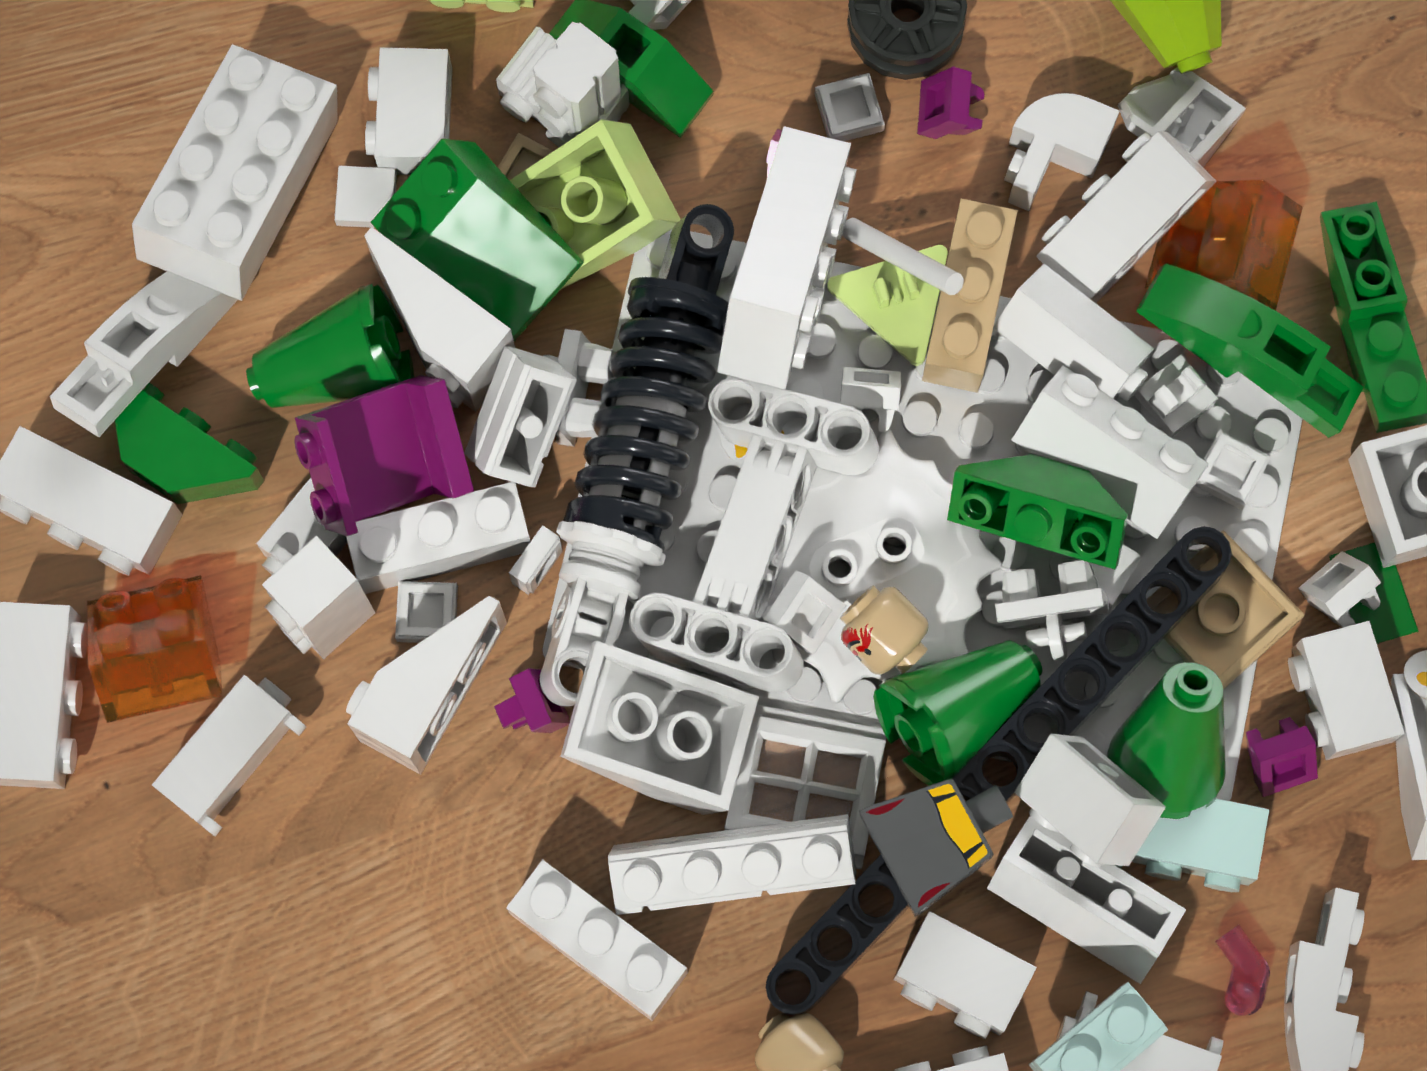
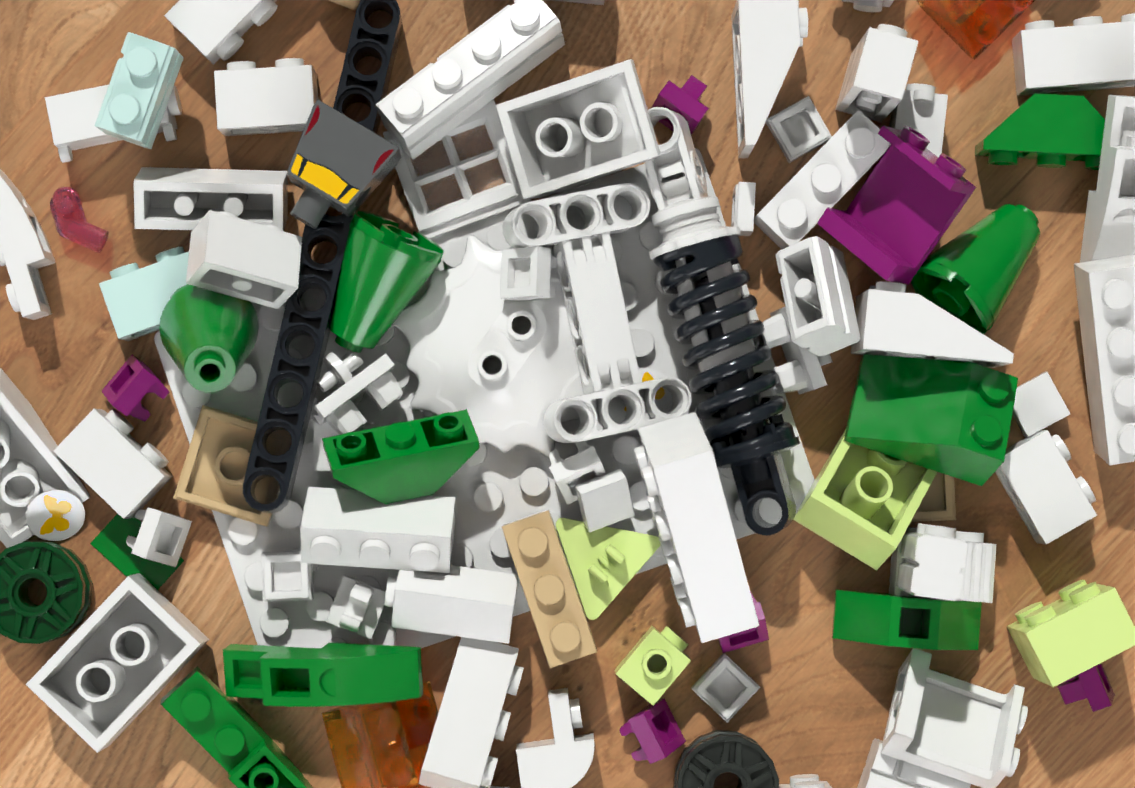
camera: 150 degrees right, 10 degrees up
(860, 349) = (604, 500): none -> white tile
(884, 630) = (461, 295): tan head -> none
(903, 256) = (614, 586): white bar -> none
(908, 168) = (654, 663): none -> yellowish green brick

